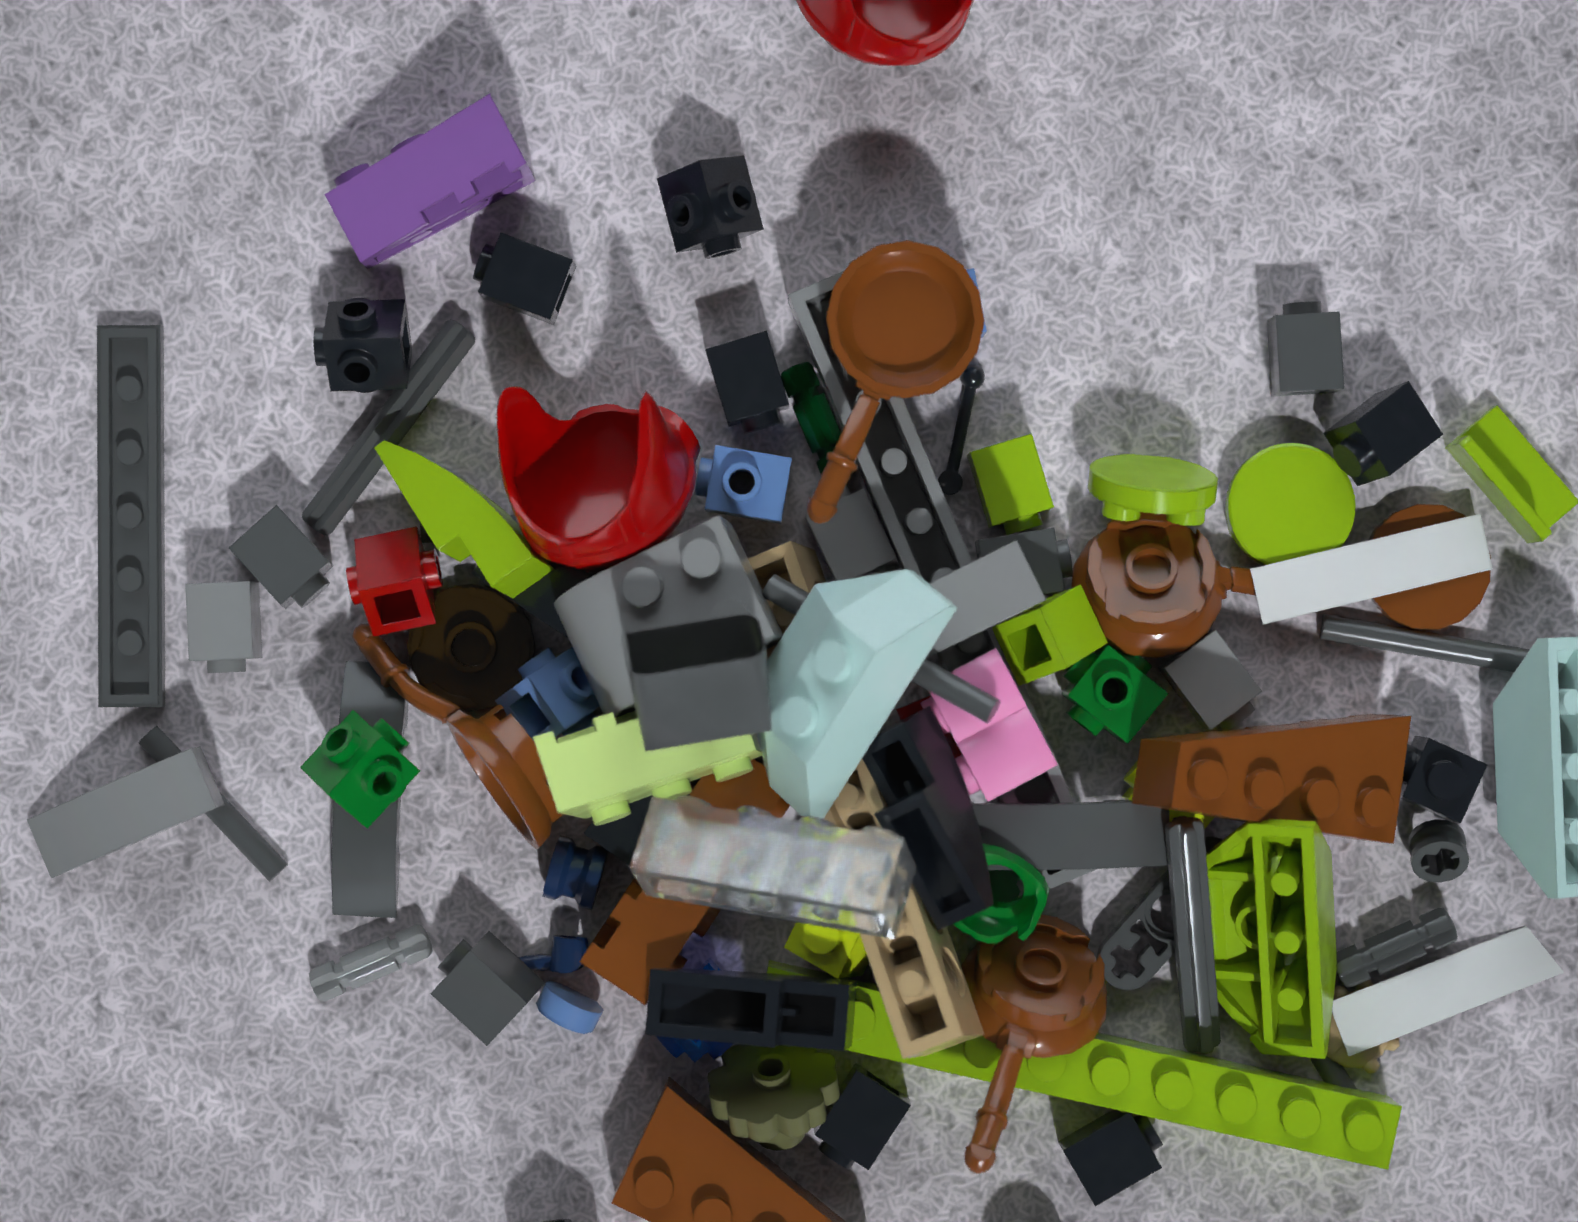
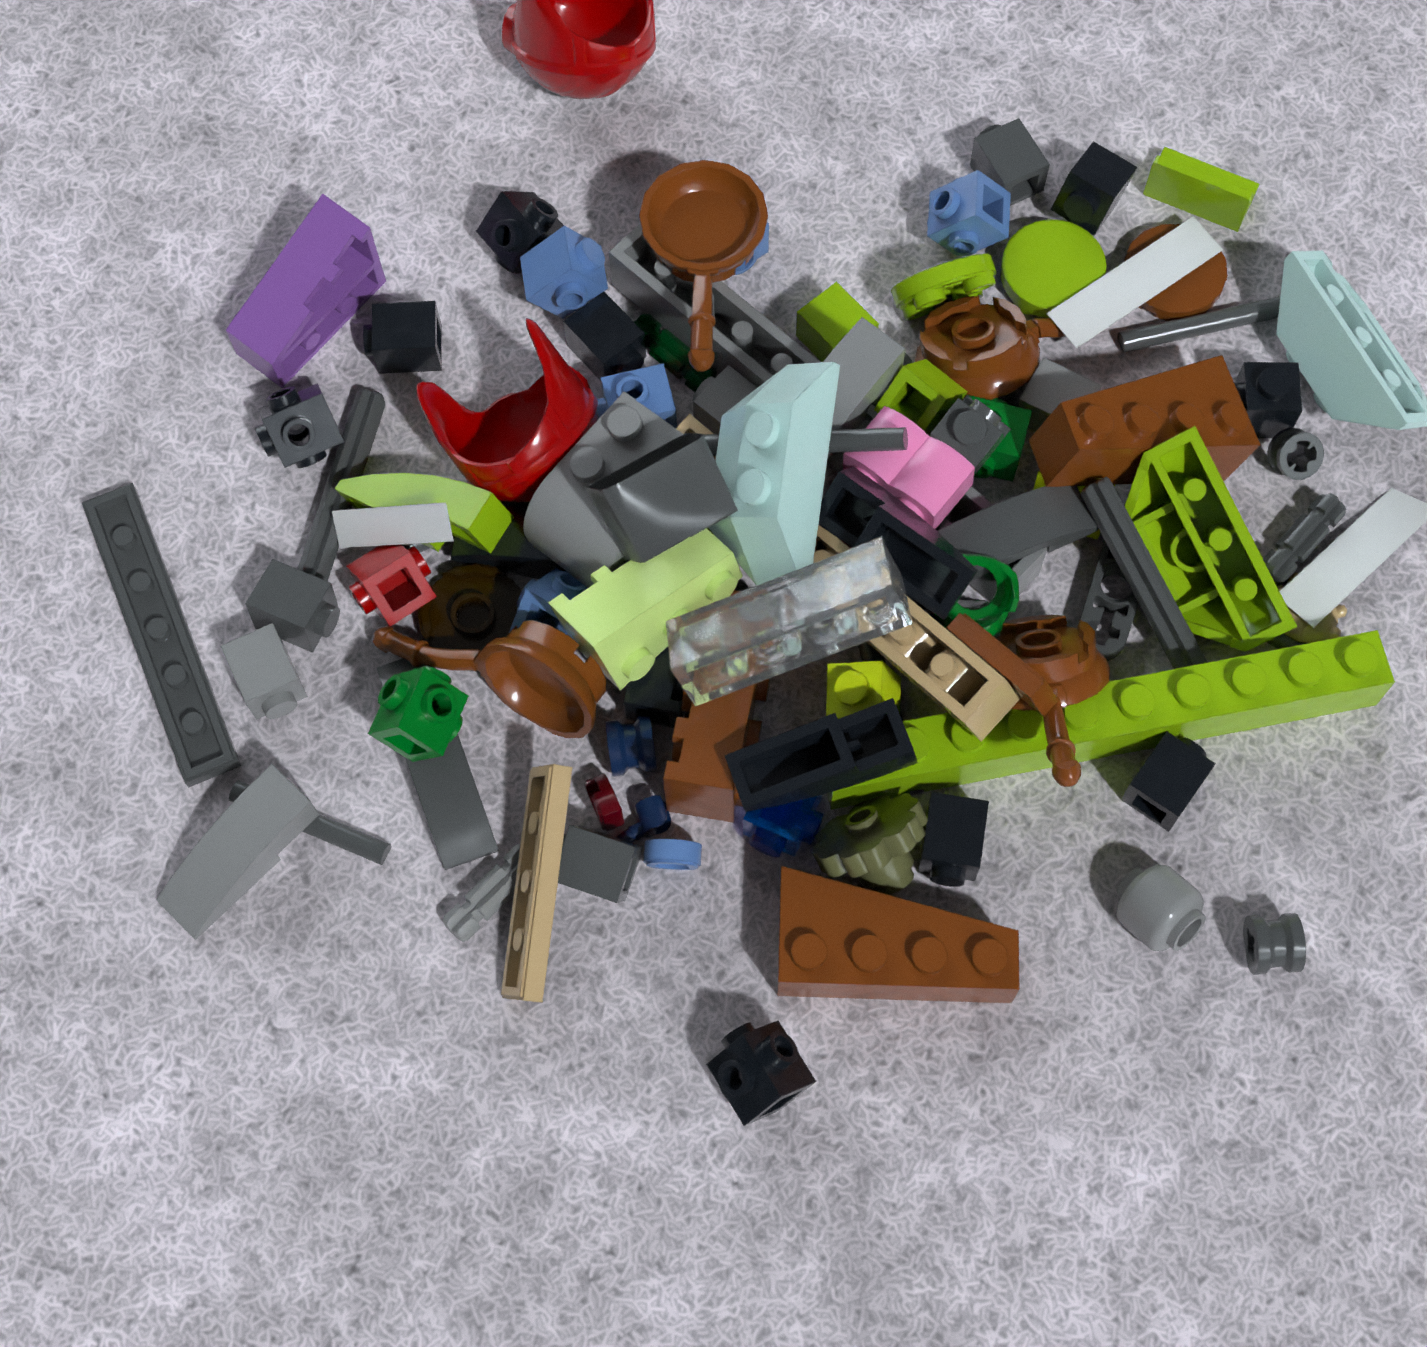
camera: 25 degrees left, 20 degrees down
(415, 987) = (536, 883): none -> tan tile
(417, 530) = (393, 525): none -> white sticker
(523, 923) = (604, 802): none -> dark red tile
(730, 291) = (564, 272): none -> medium blue brick
(971, 379) = (774, 281): black hinge -> none
(978, 999) = (1022, 678): none -> dark orange tile
(1078, 710) = (971, 430): none -> dark grey brick
(1223, 406) = (969, 214): none -> medium blue brick

